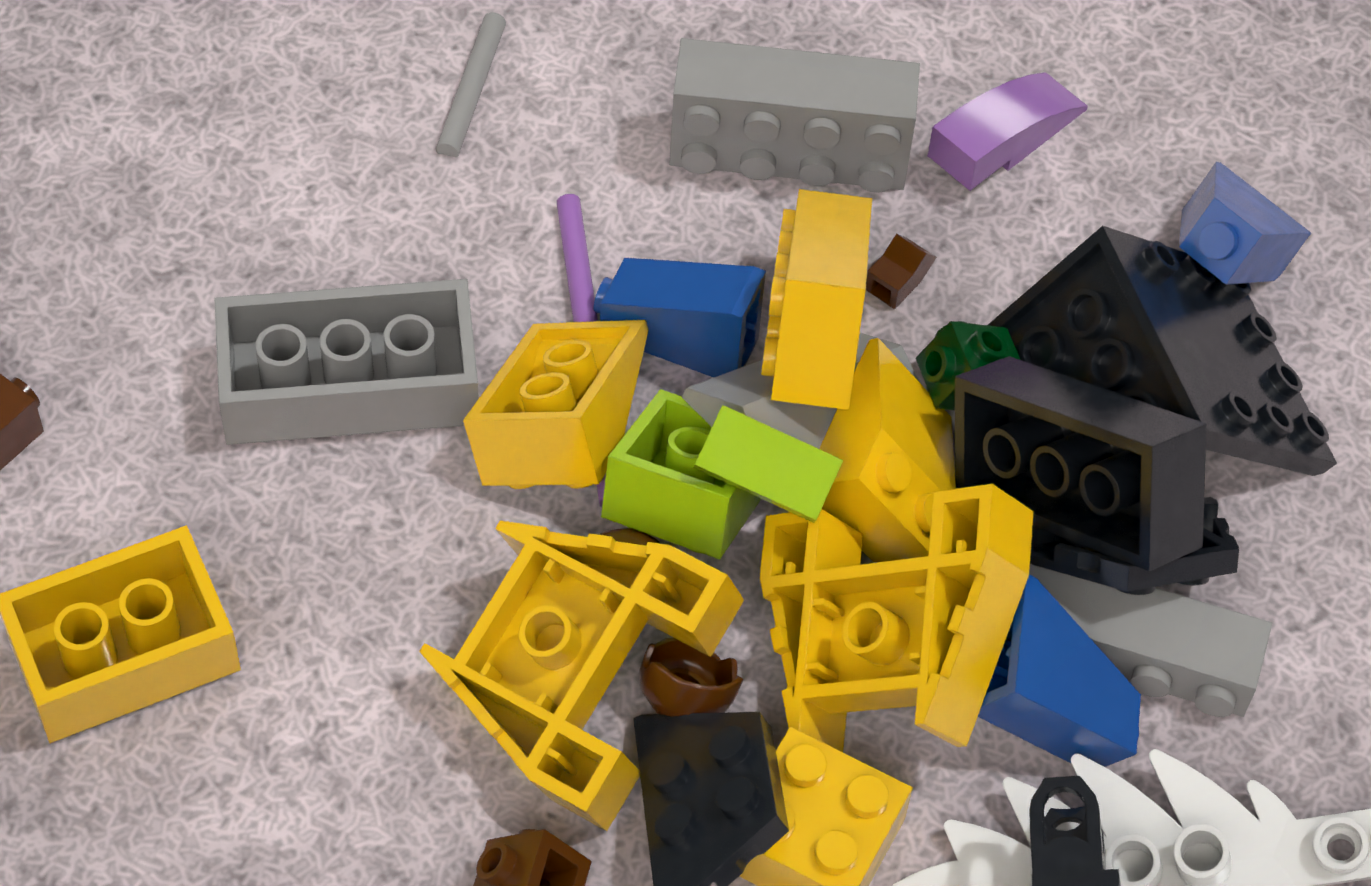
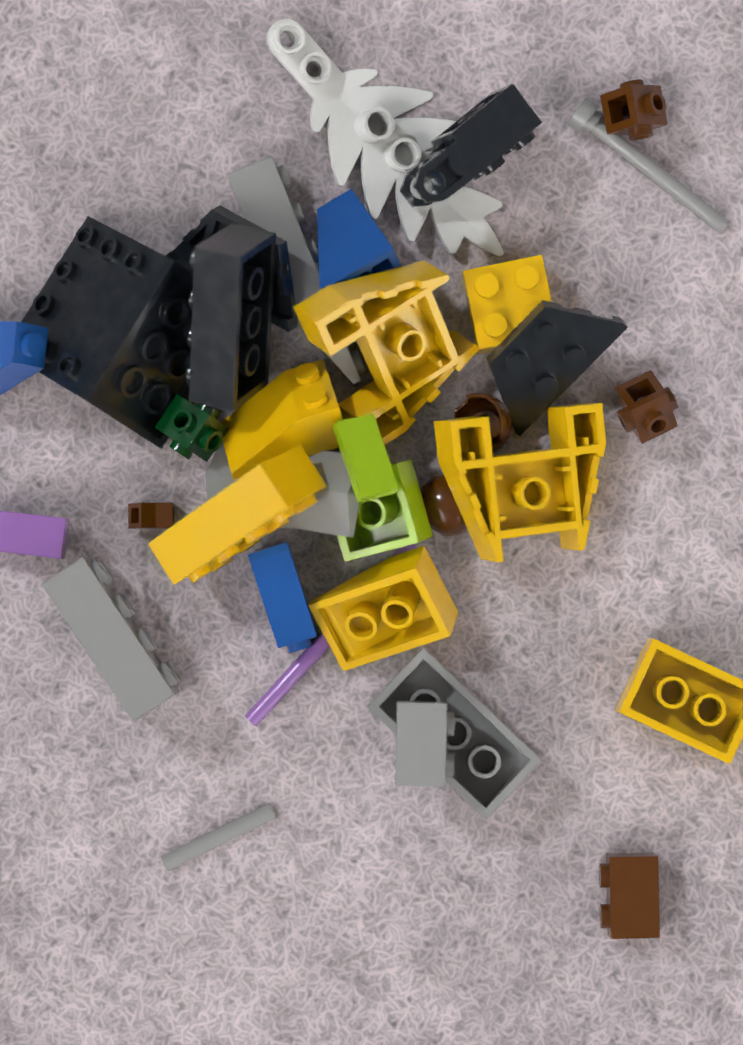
camera: 125 degrees left, 30 degrees up
(369, 281) = (422, 743): none -> light grey brick

